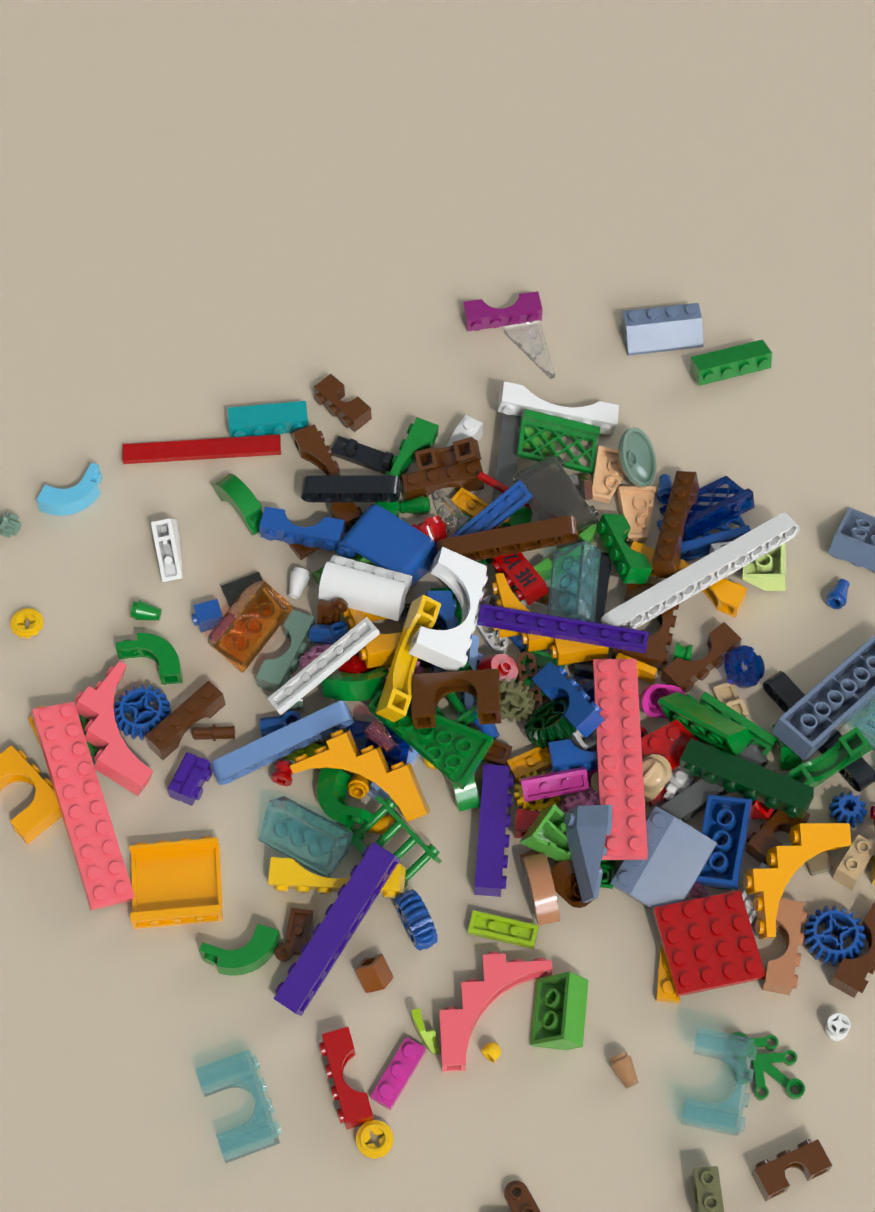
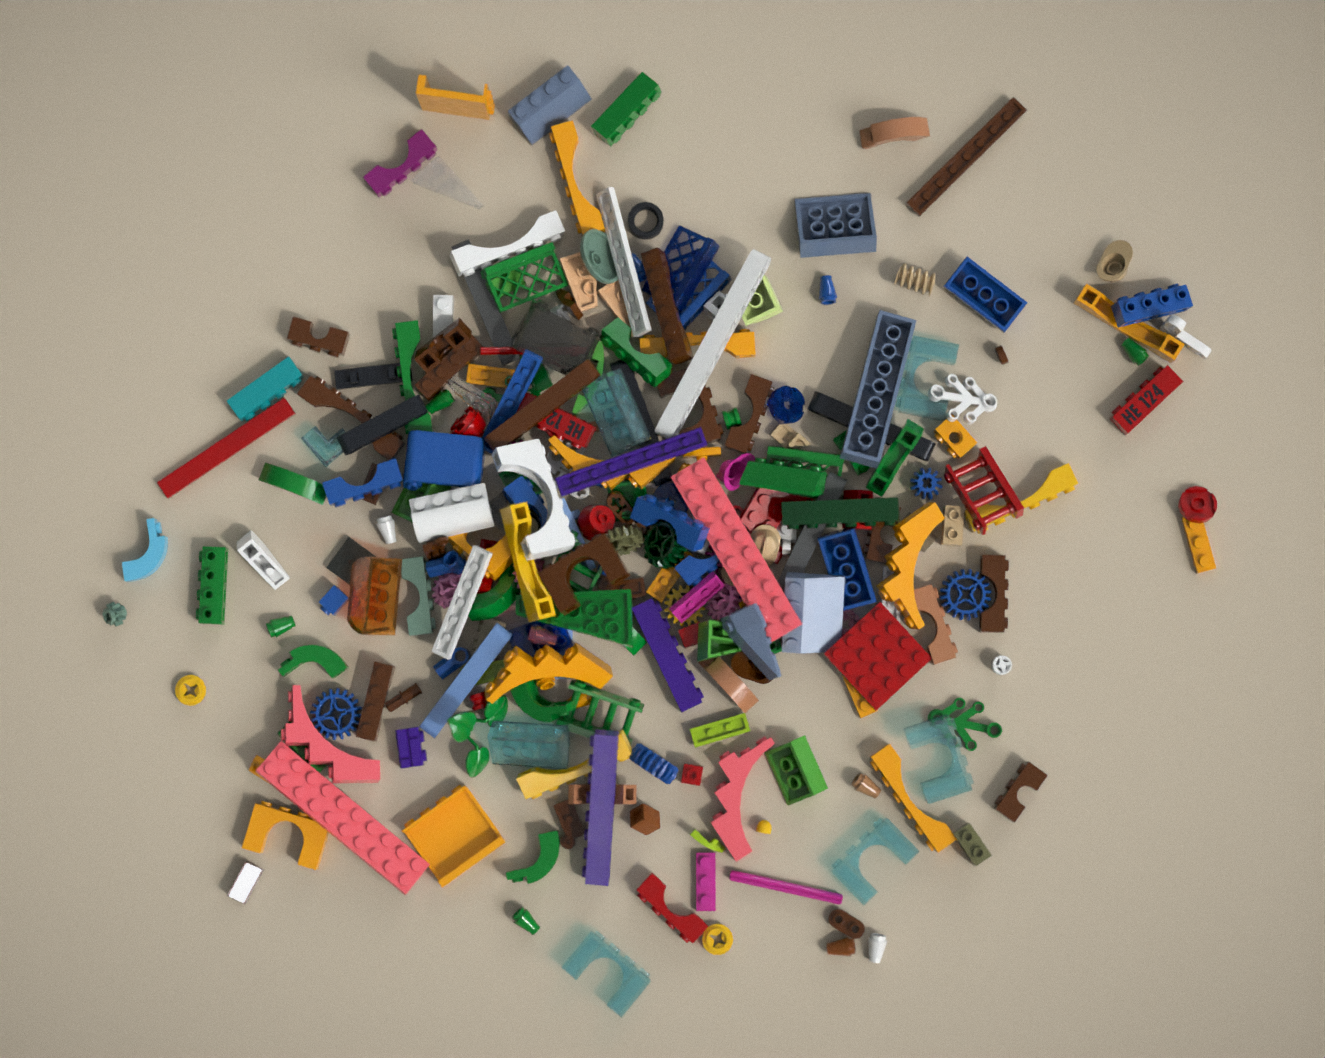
camera: 30 degrees left, 25 degrees up
(110, 547) = (213, 585): none -> green brick
(191, 1005) = (525, 920): none -> green cone
(248, 770) = (462, 725): none -> green plant
(286, 490) = (324, 449): none -> clear light blue brick
(368, 933) = (623, 794): none -> nougat arch
(448, 955) = (692, 774): none -> red brick
(480, 1127) = (786, 887): none -> dark pink axle
(581, 276) = (454, 102): none -> light orange panel
(614, 1129) = (883, 834): none -> clear light blue arch
(656, 475) = (623, 262): none -> white plate
(660, 365) = (566, 142): none -> light orange arch
(675, 1159) = (889, 764): none -> light orange arch
(700, 444) = (645, 206): none -> black tyre

